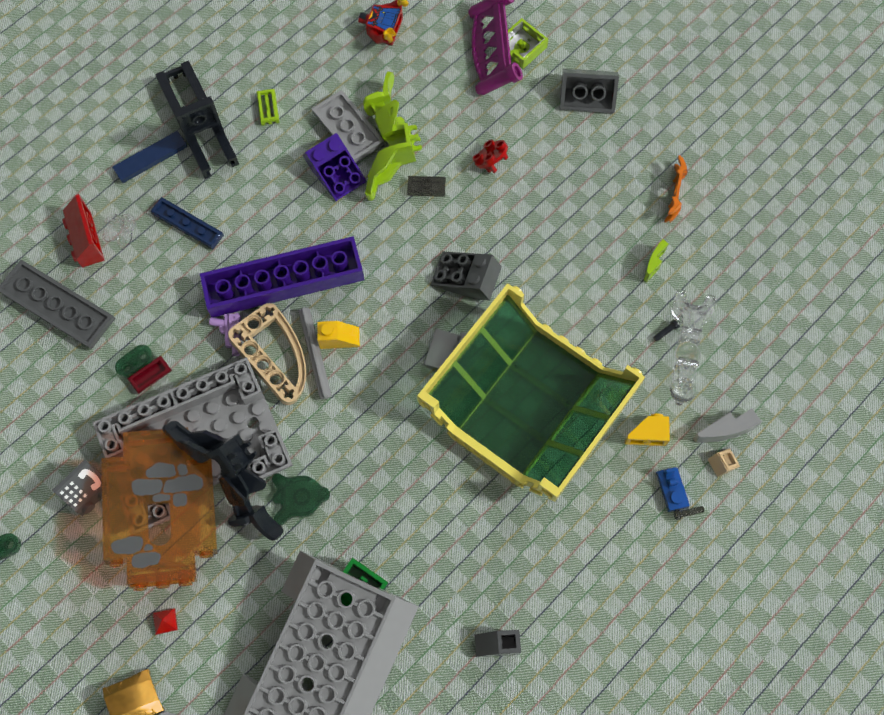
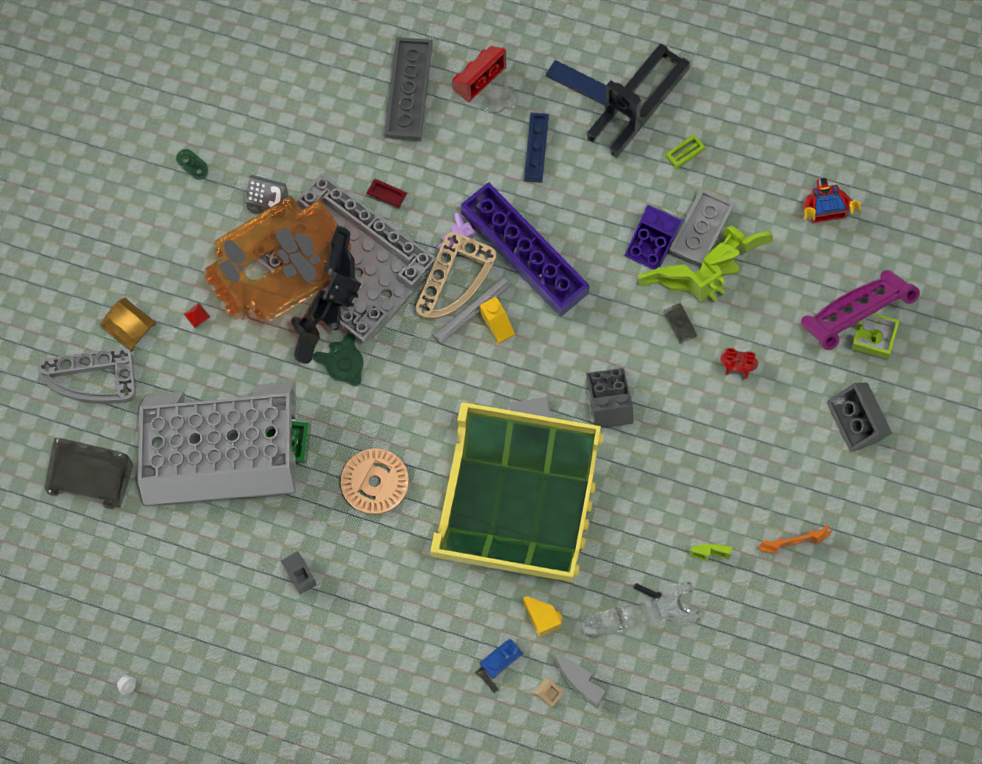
camera: 65 degrees right, 0 degrees up
(134, 361) = (392, 175): clear green plate -> none
(424, 538) = (356, 478): none -> light nougat piece

